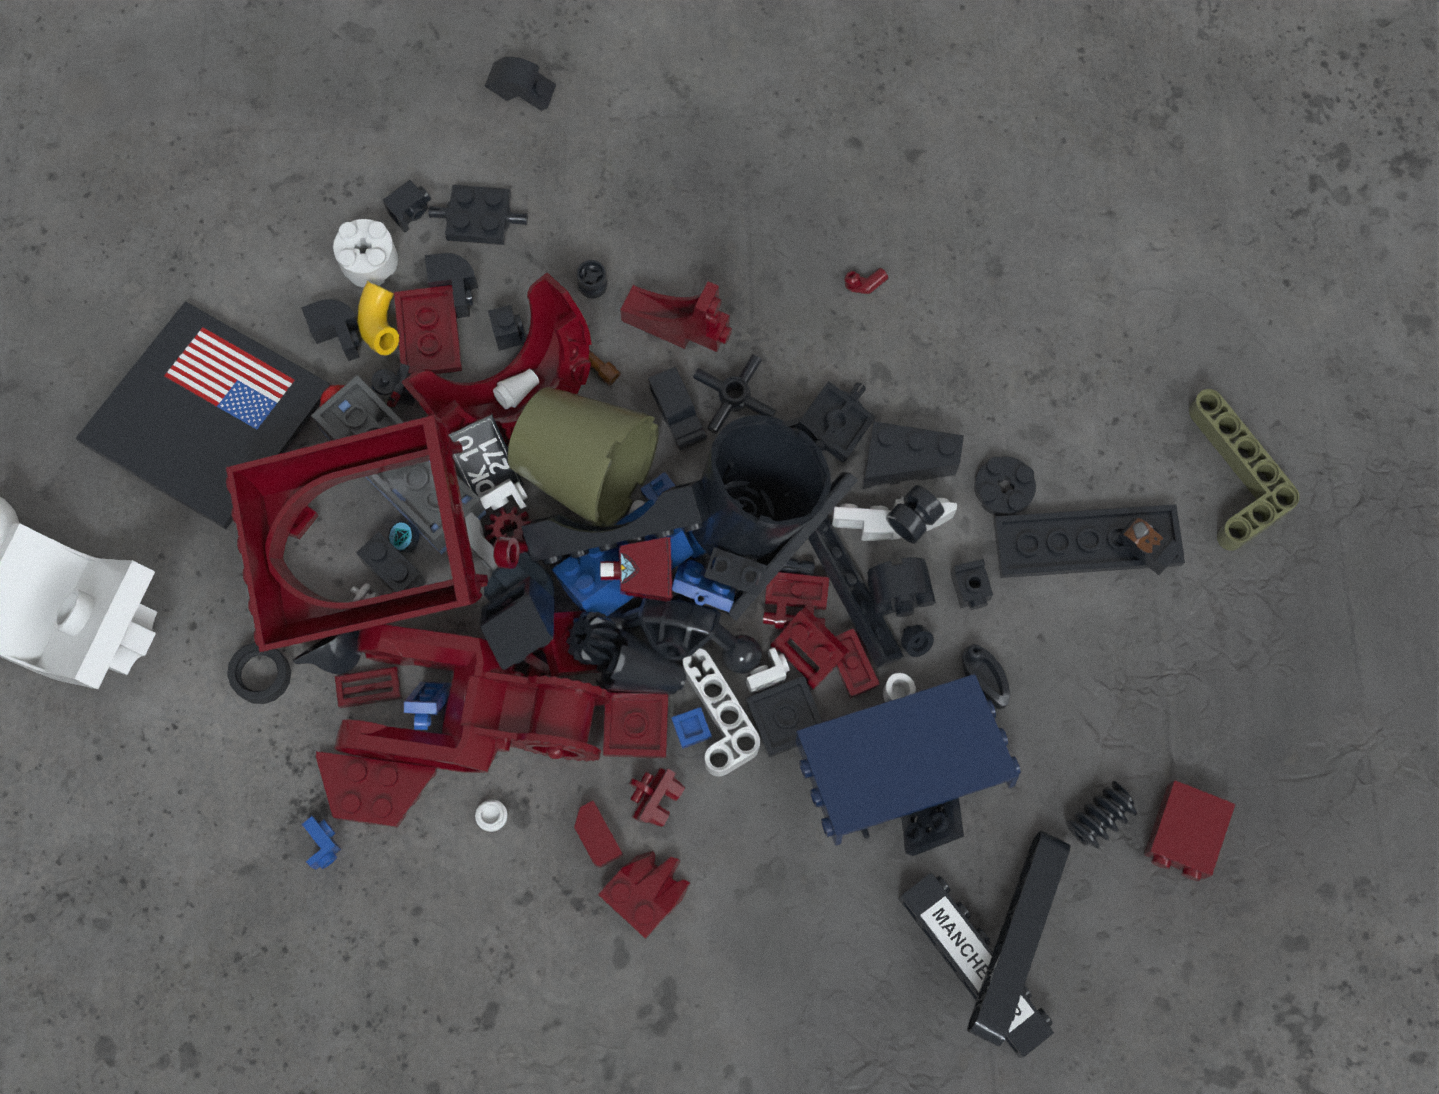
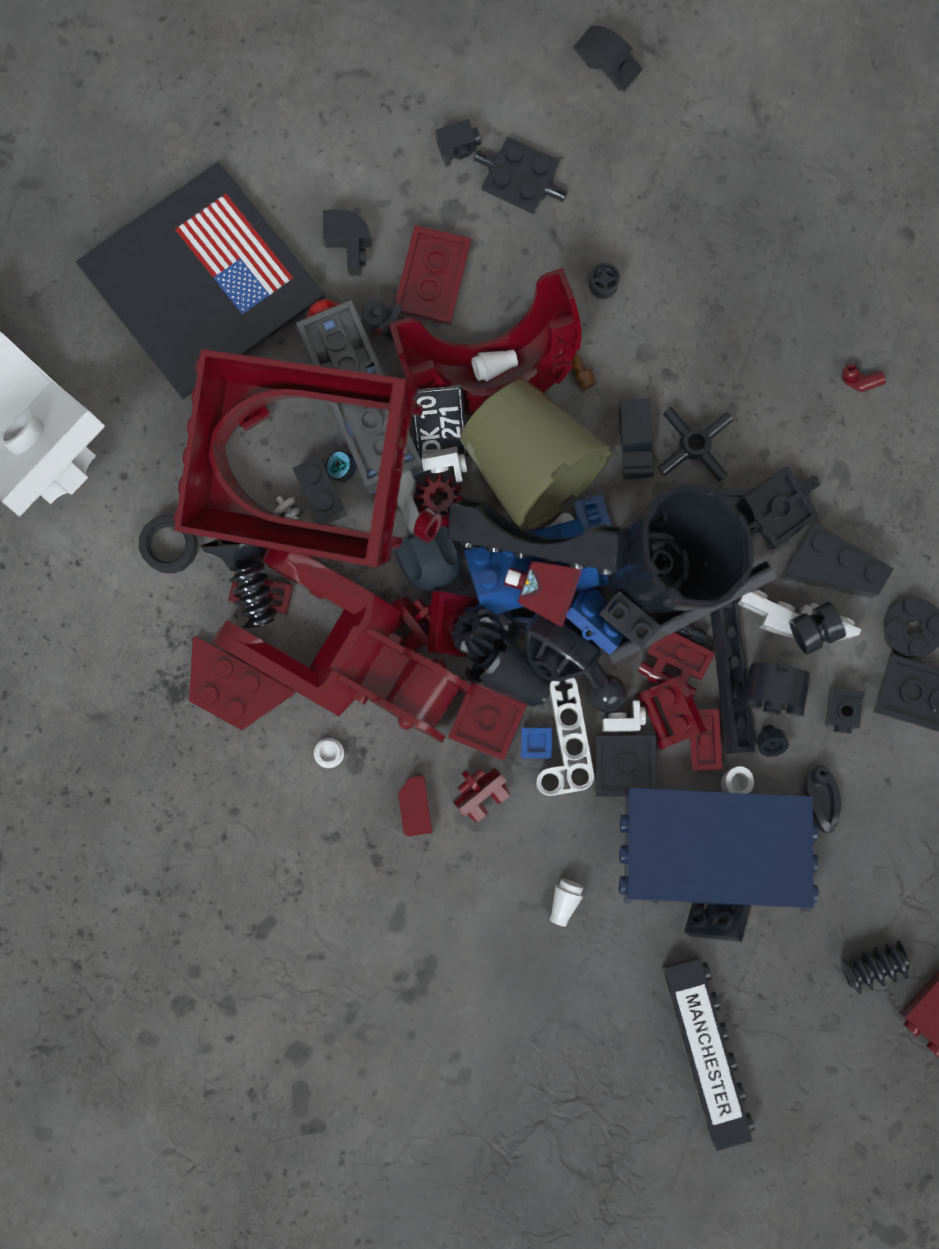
camera: 25 degrees right, 10 degrees up
(322, 835) = (174, 714): blue bracket -> none
(360, 687) = (253, 594): none -> black piece
(365, 252) = (414, 185): white brick -> none
(373, 319) = (385, 246): yellow cylinder -> none
(425, 701) = (307, 632): blue plate -> none
(453, 270) = (476, 224): black brick -> none
(507, 327) = (507, 300): black brick -> none
(518, 622) = (415, 594): black slope -> none
(645, 892) = (440, 874): dark red plate -> none
(679, 318) = (671, 353): dark red arch -> none
(779, 870) = (566, 899): none -> white cone
(1018, 939) = (755, 1047): black beam -> none

